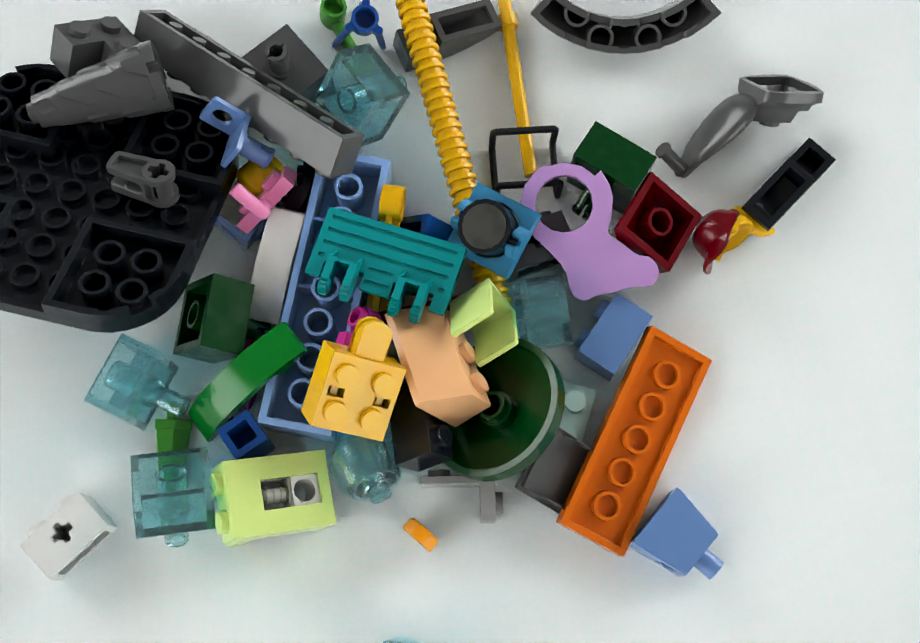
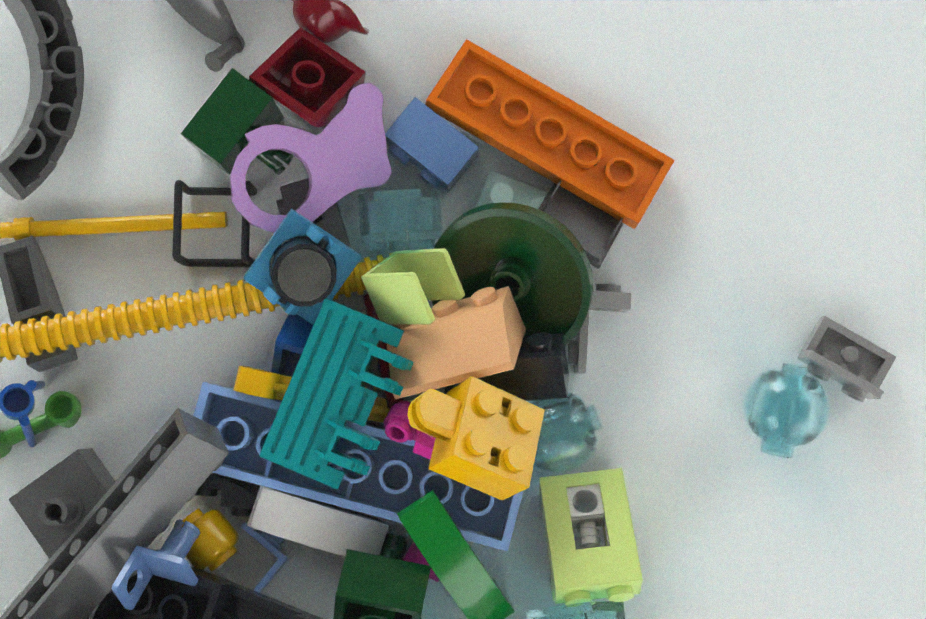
camera: 85 degrees left, 10 degrees up
(245, 437) = (521, 566): blue brick -> none
(258, 208) = (248, 541): bright pink plate -> none
(363, 92) = (110, 410): clear light blue brick -> none
(420, 534) = (636, 377): light orange tile -> none
(678, 537) = (657, 100): medium blue torso -> none

